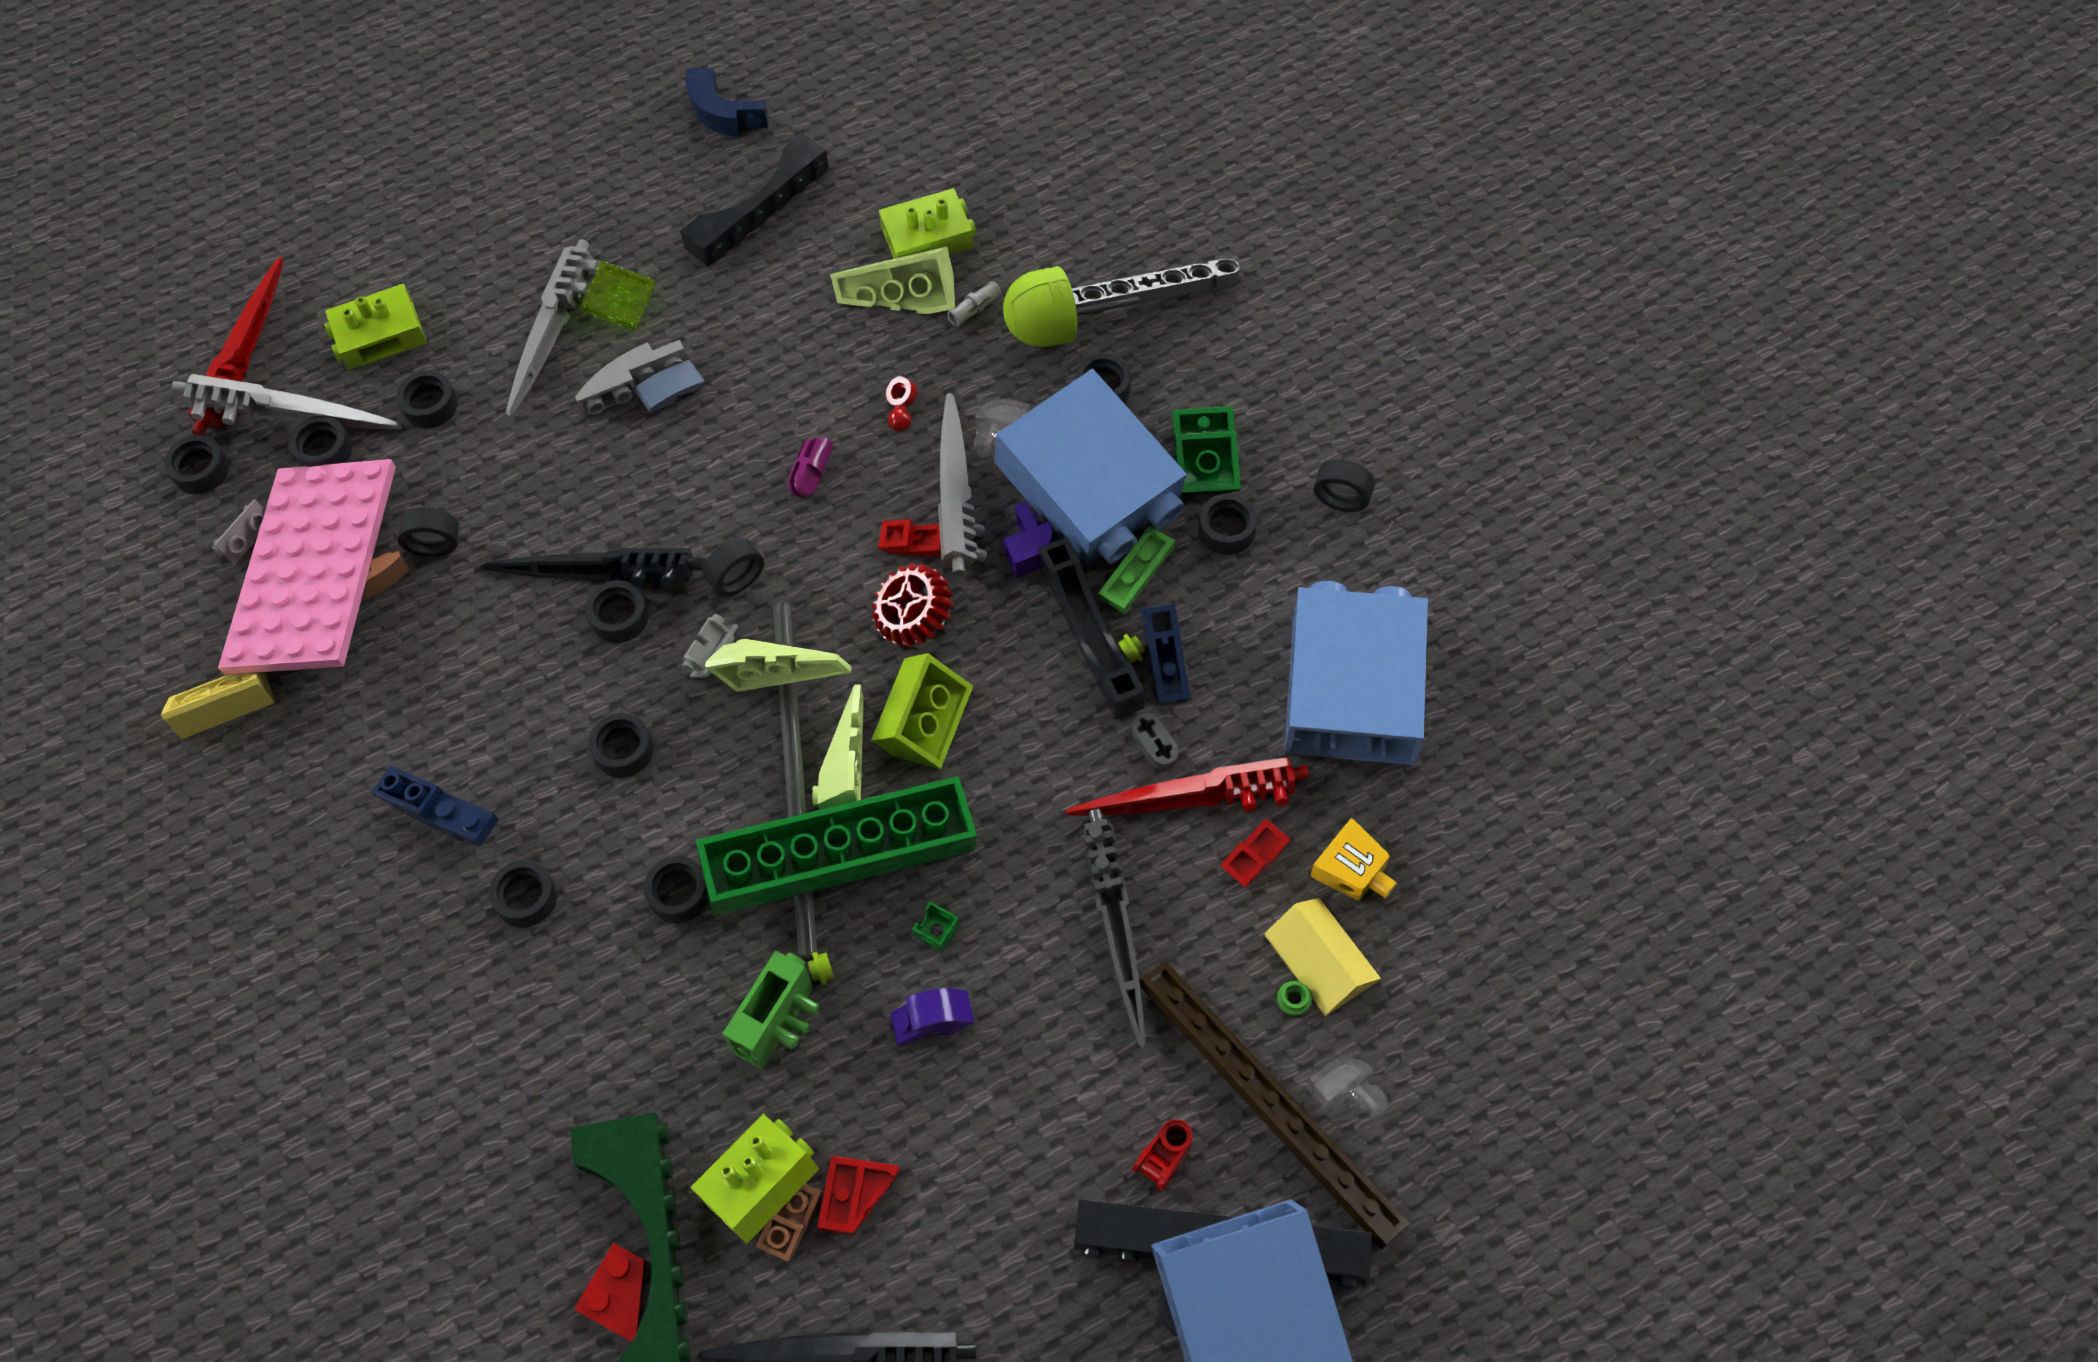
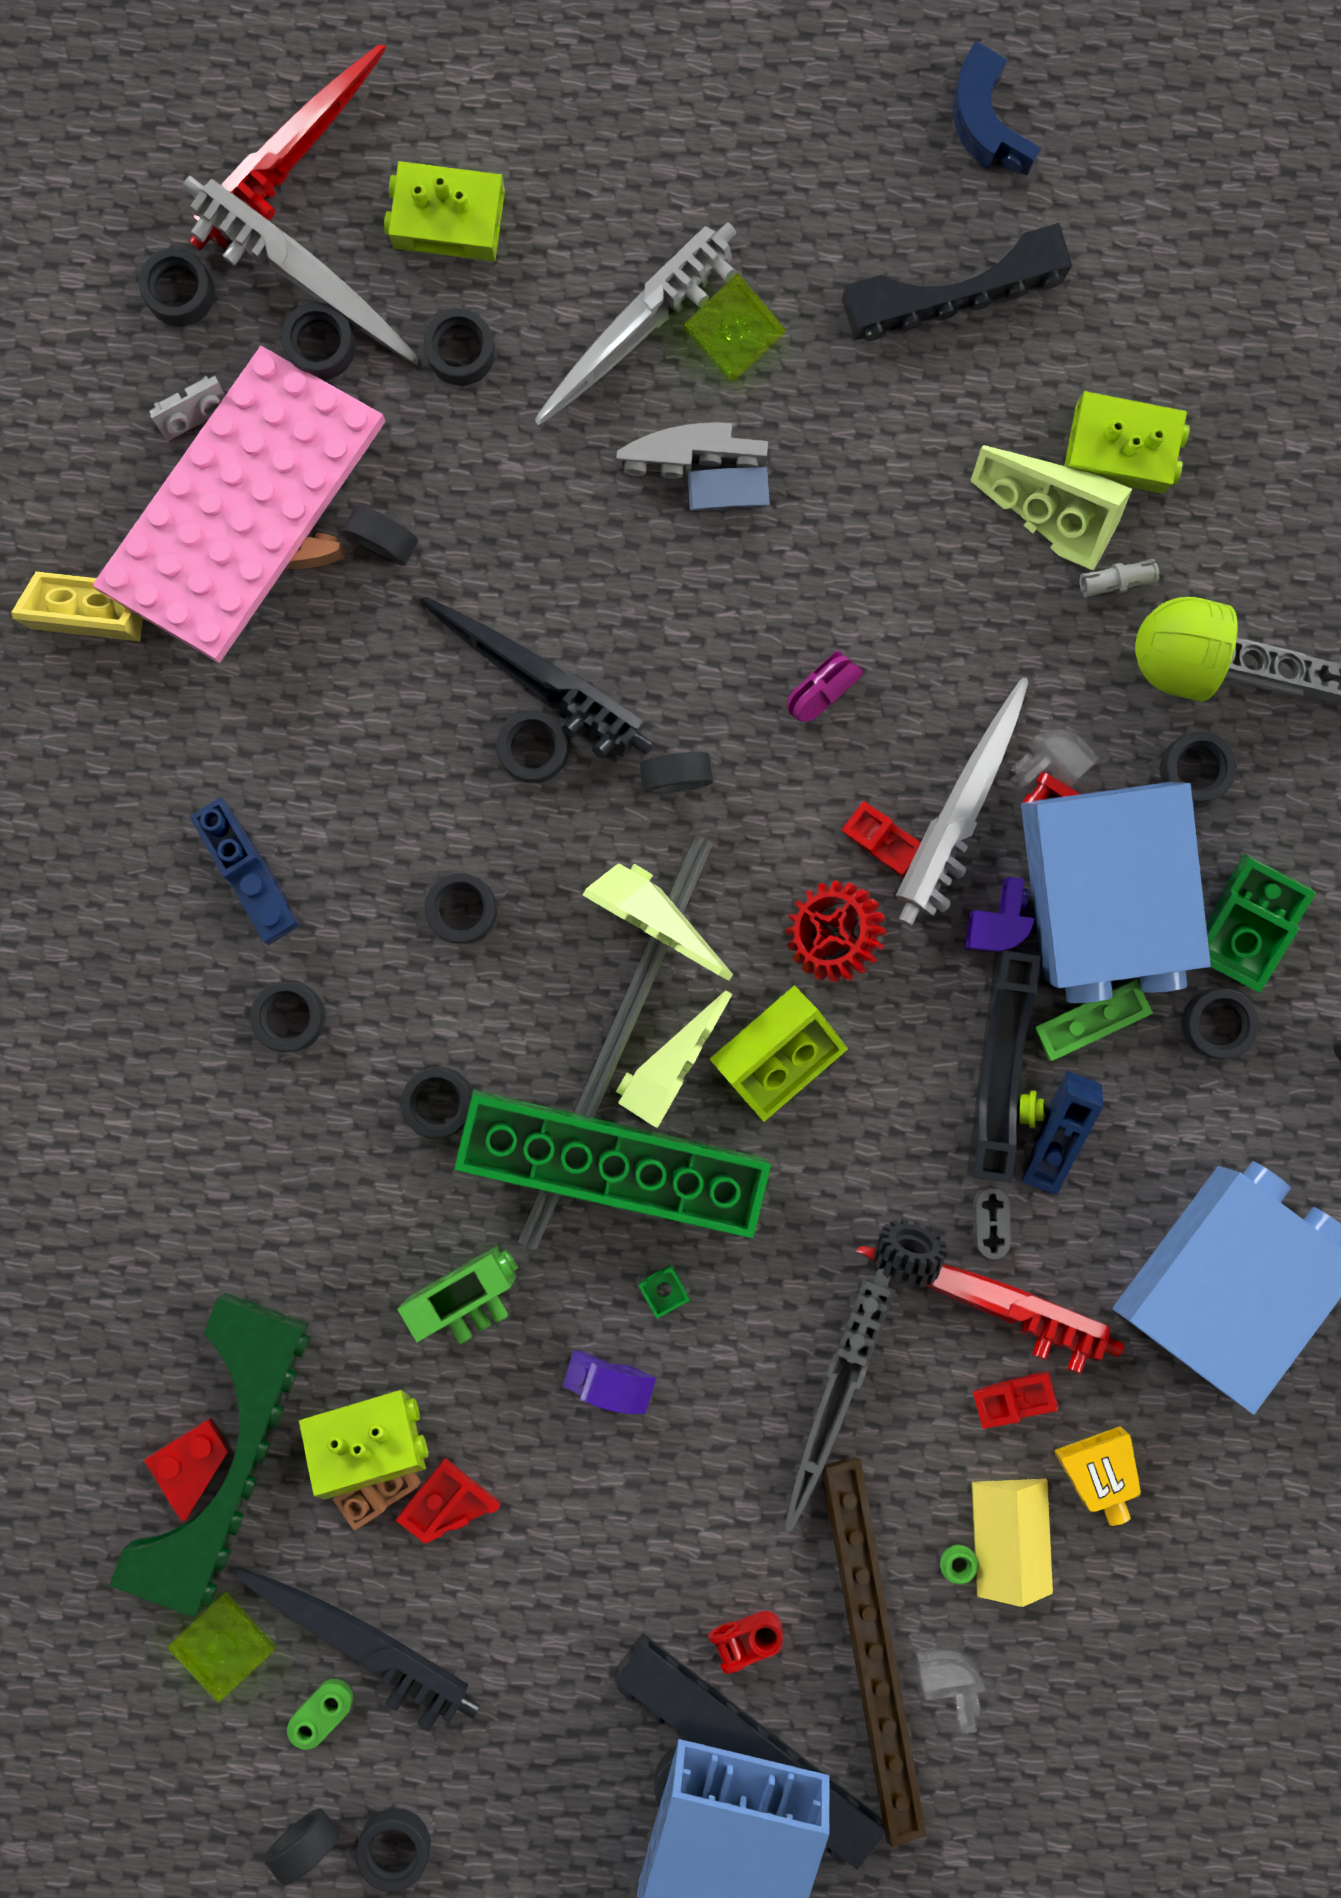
camera: 25 degrees right, 25 degrees up
(715, 636) = (618, 843): light grey hinge -> none
(820, 968) = (531, 1269): lime plate -> none
(900, 418) = (953, 678): red plate -> none
(1104, 785) = (910, 1253): none -> black tyre

